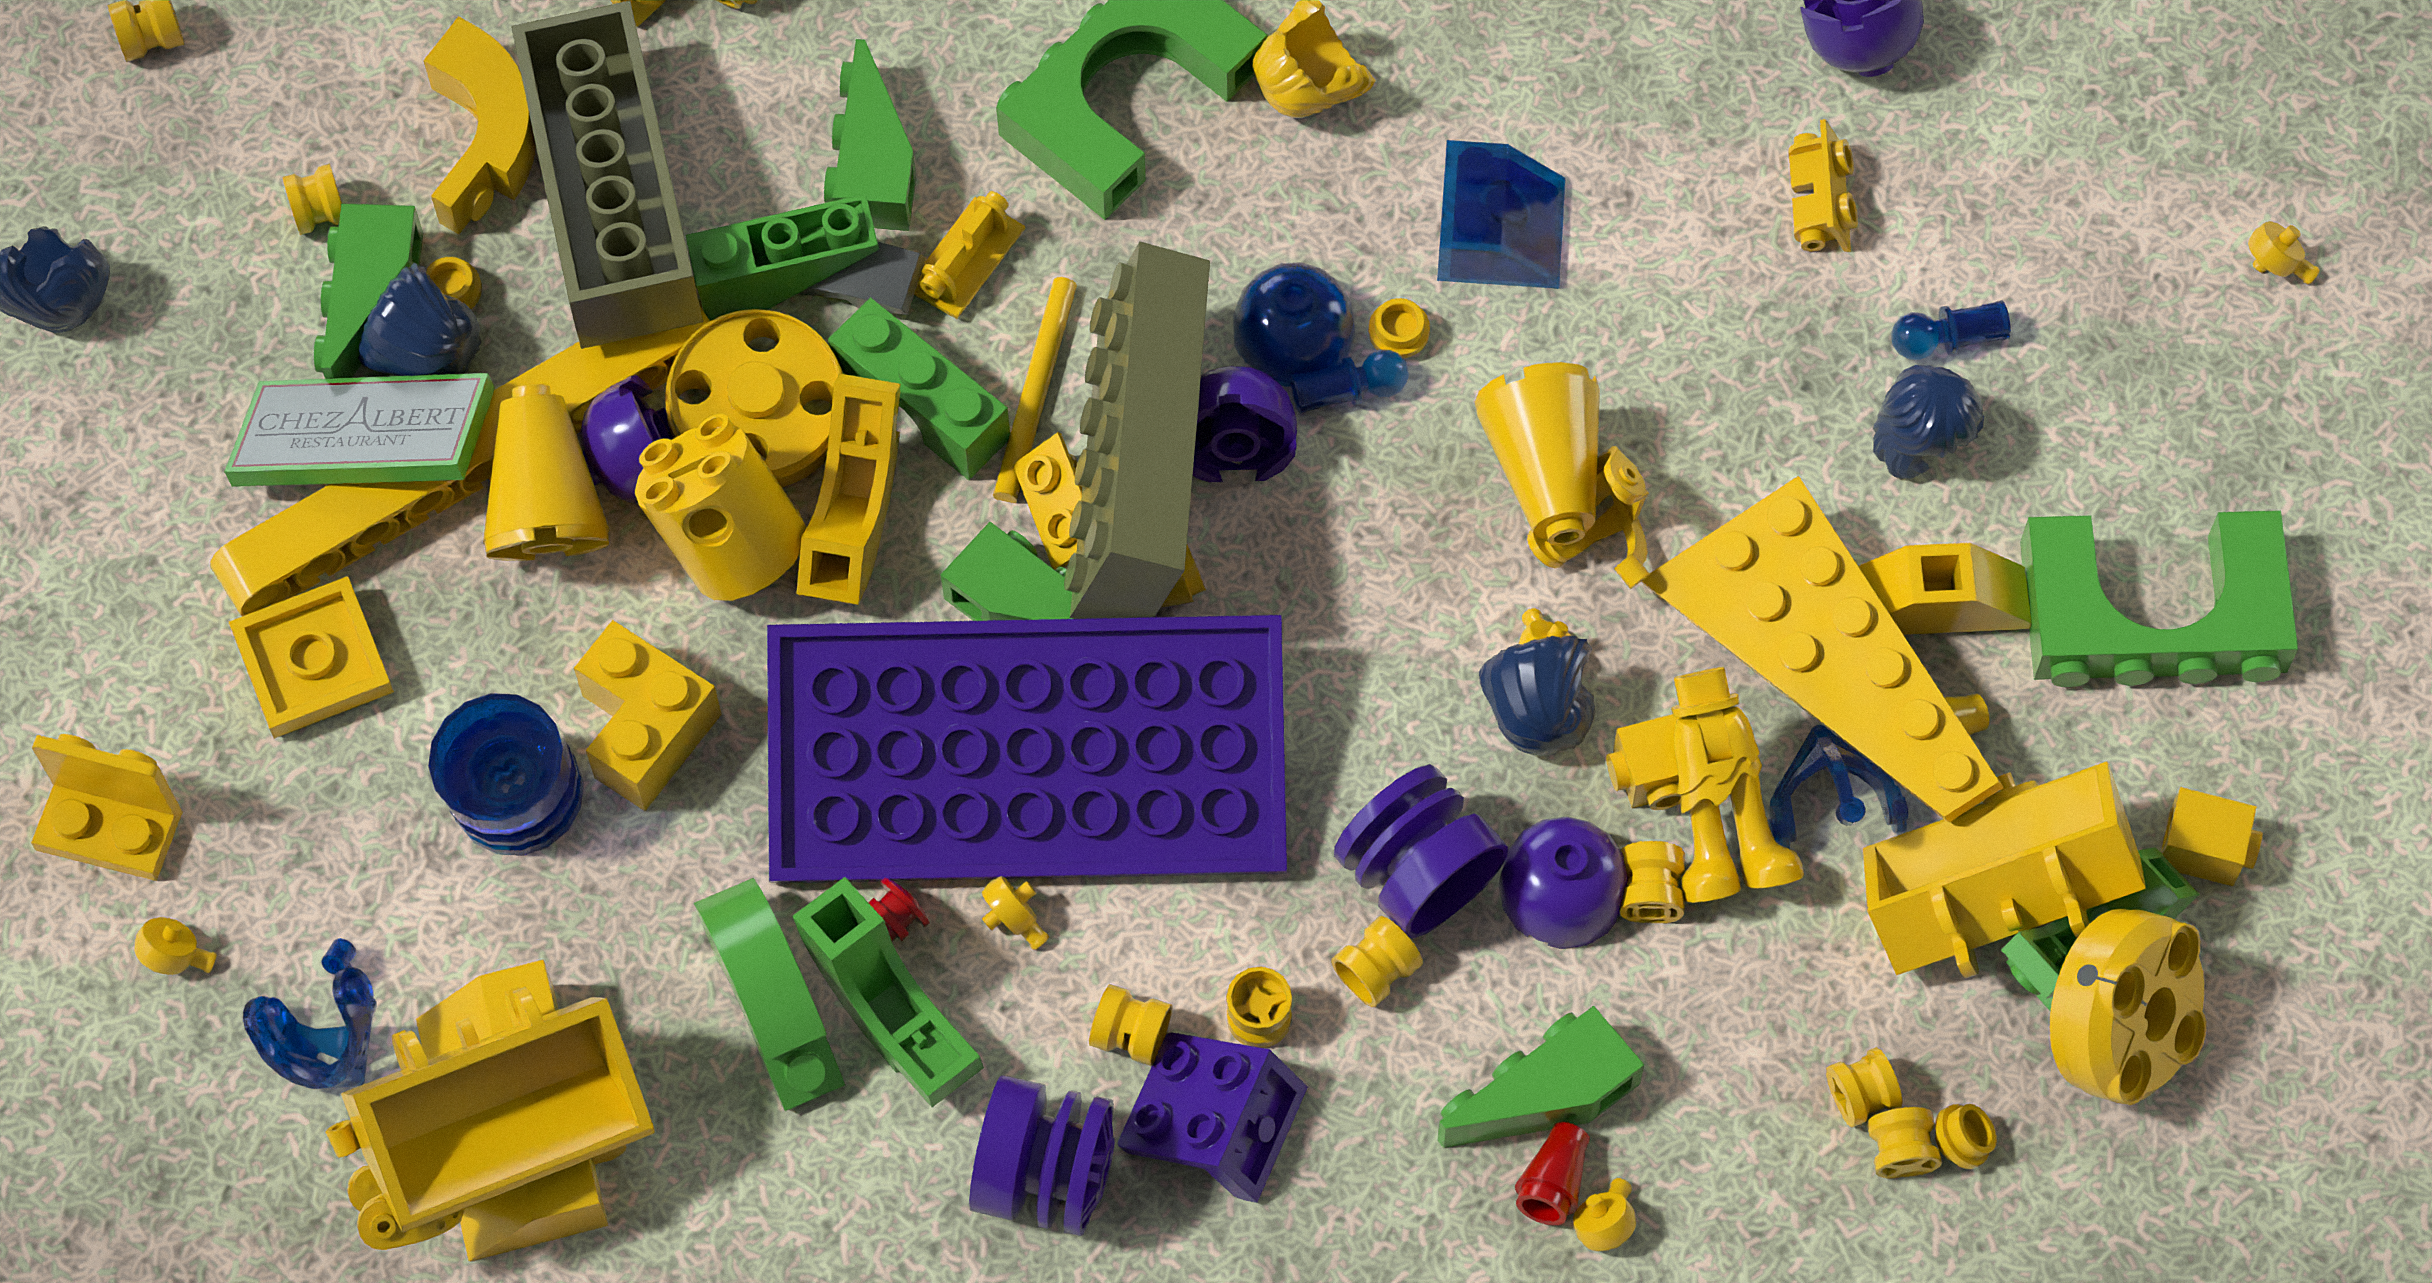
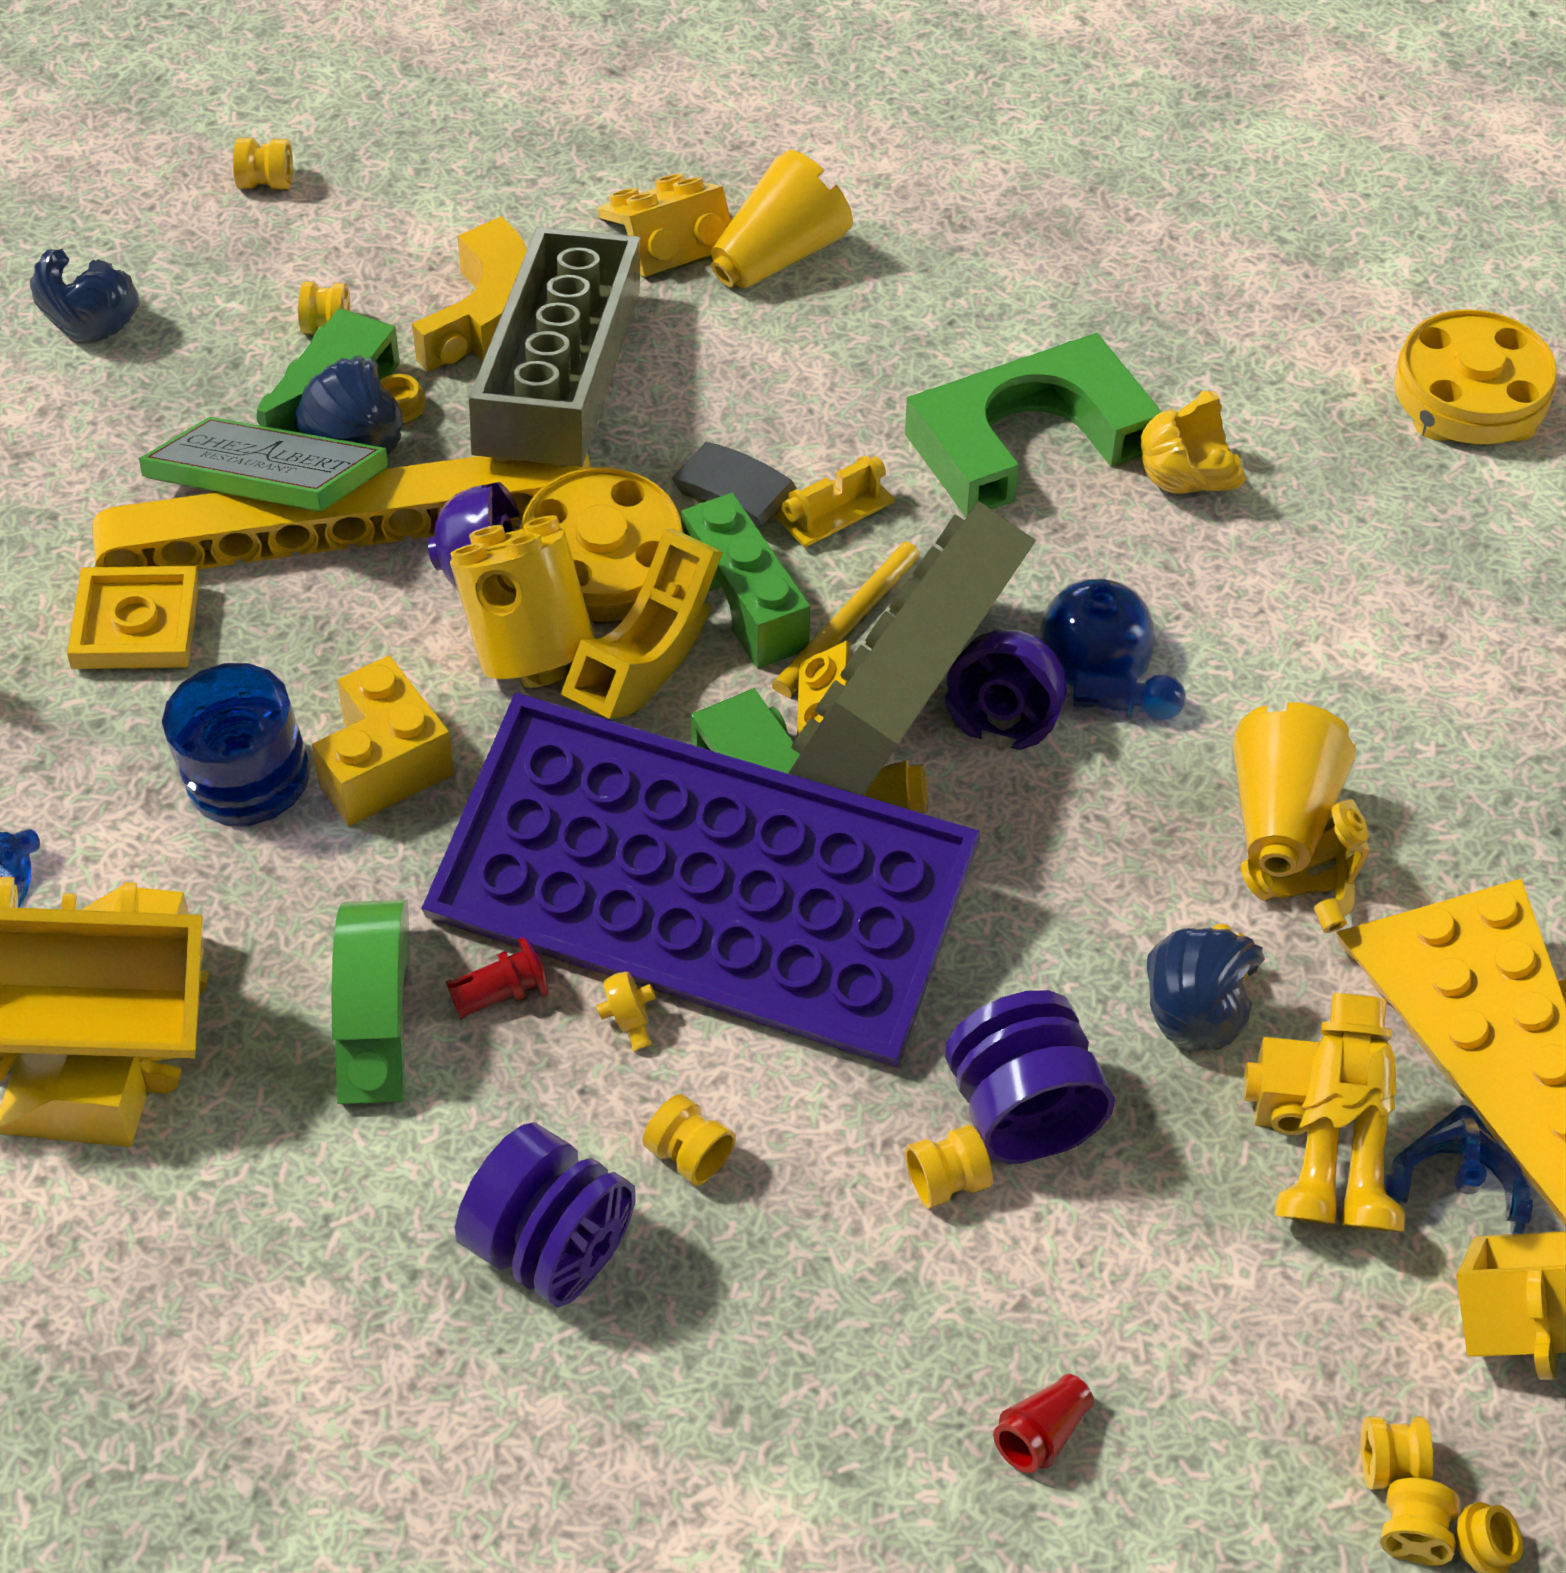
camera: 20 degrees right, 15 degrees down
(540, 483) = (383, 542): yellow cone -> none
(778, 254) = (673, 444): bright green slope -> none
(871, 146) = (786, 413): bright green slope -> none
(881, 995) = (469, 1021): bright green arch -> none
(1215, 1110) = (740, 1244): dark purple bracket -> none
(1256, 994) = (817, 1166): yellow wheel -> none
(1399, 327) = (1193, 666): yellow plate -> none
(1500, 217) = (1315, 610): clear blue slope -> none
(1563, 882) = (1161, 1161): dark purple cylinder -> none
(1565, 1079) = (1099, 1332): bright green slope -> none
(1606, 1218) = (1080, 1482): yellow piece -> none
(1652, 882) = (1249, 1184): yellow wheel -> none

